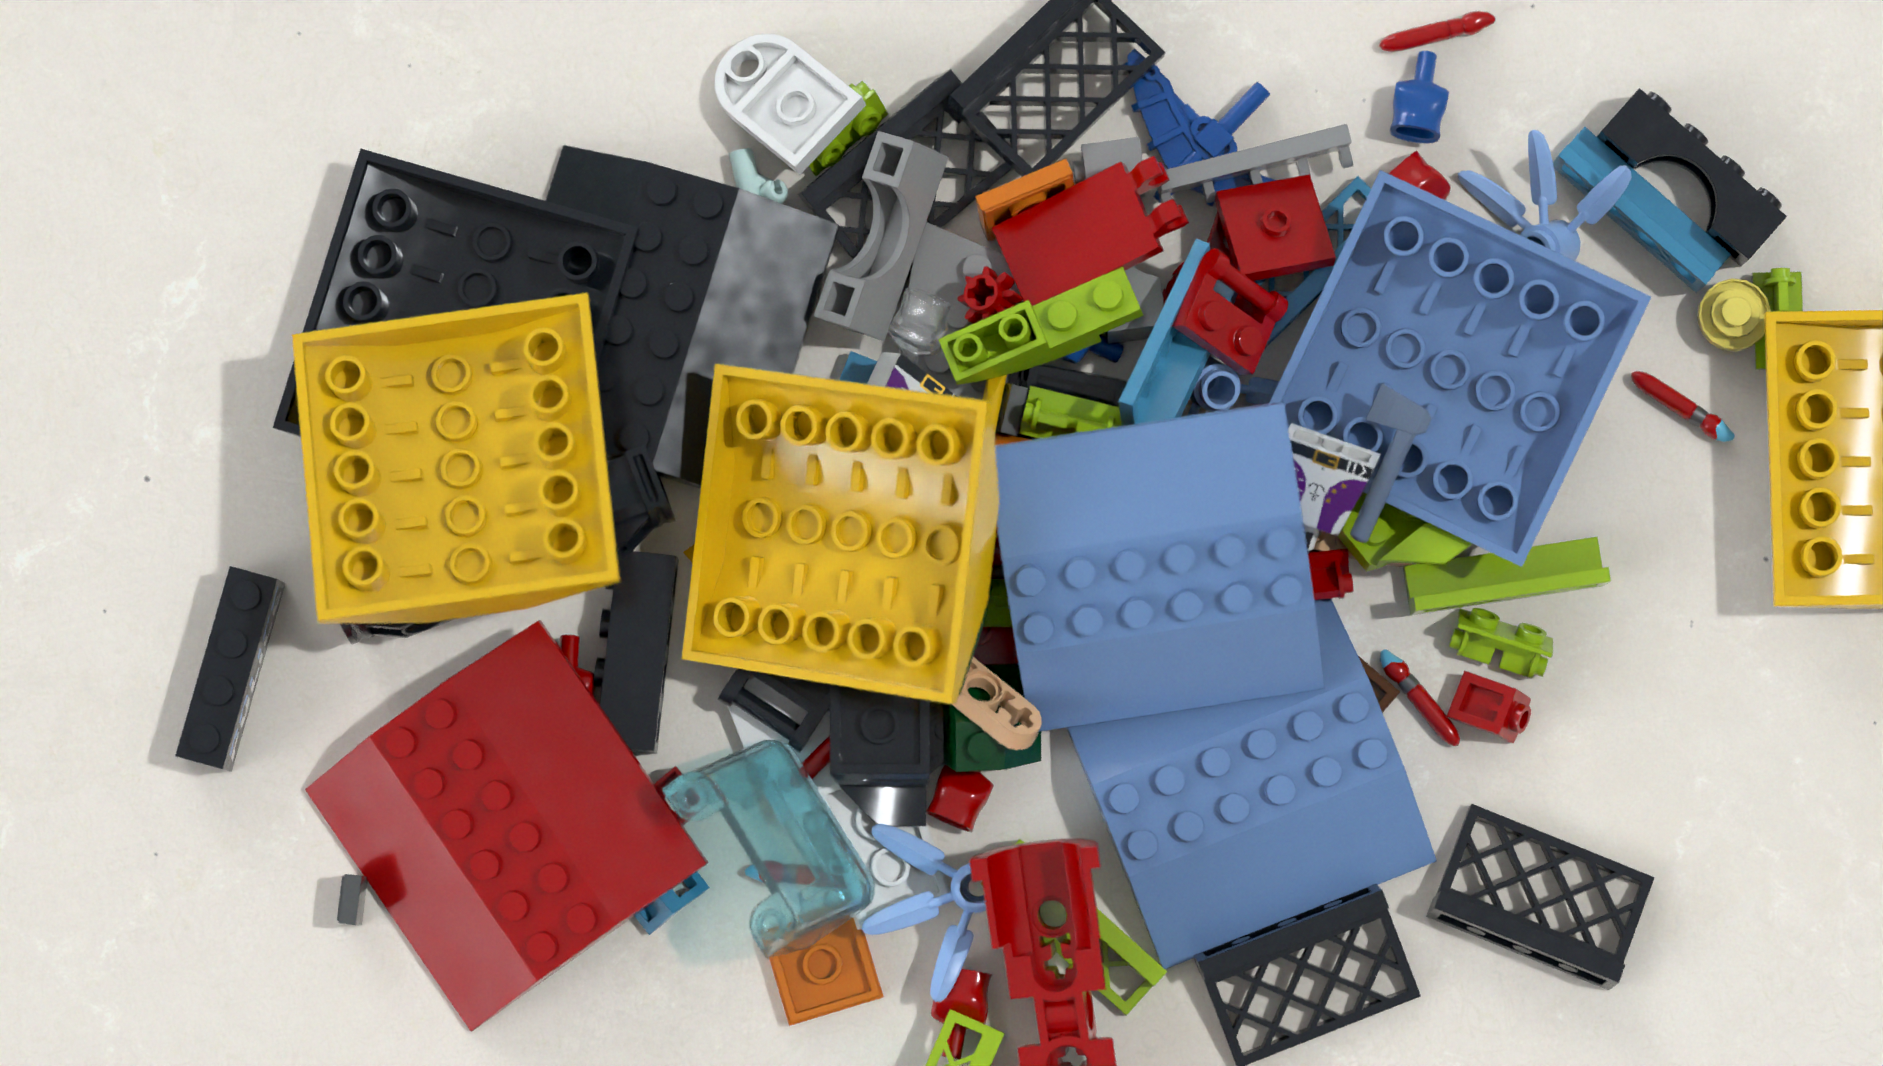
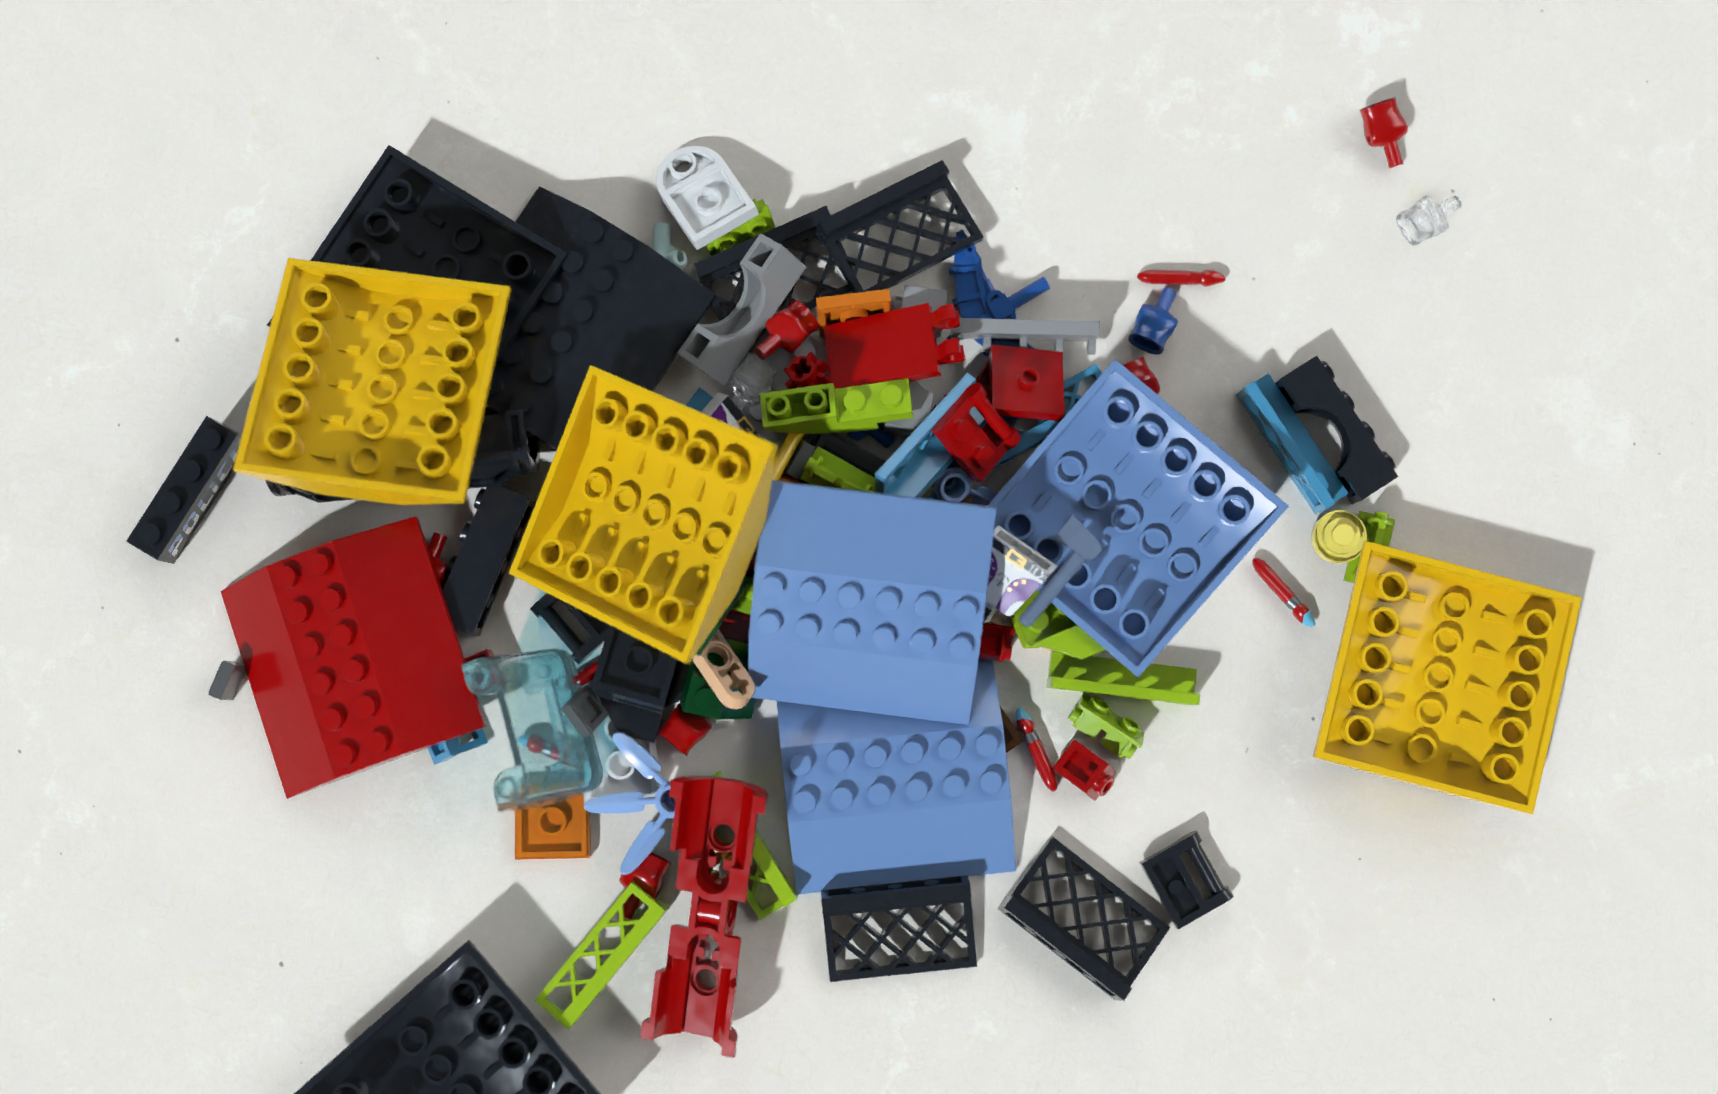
camera: 10 degrees right, 0 degrees up
(830, 807) = (585, 711): none -> dark grey tile
(947, 245) = (787, 329): none -> red piece
(1553, 234) = (1227, 412): light blue plant -> none
(1646, 821) = (1176, 886): none -> black plate

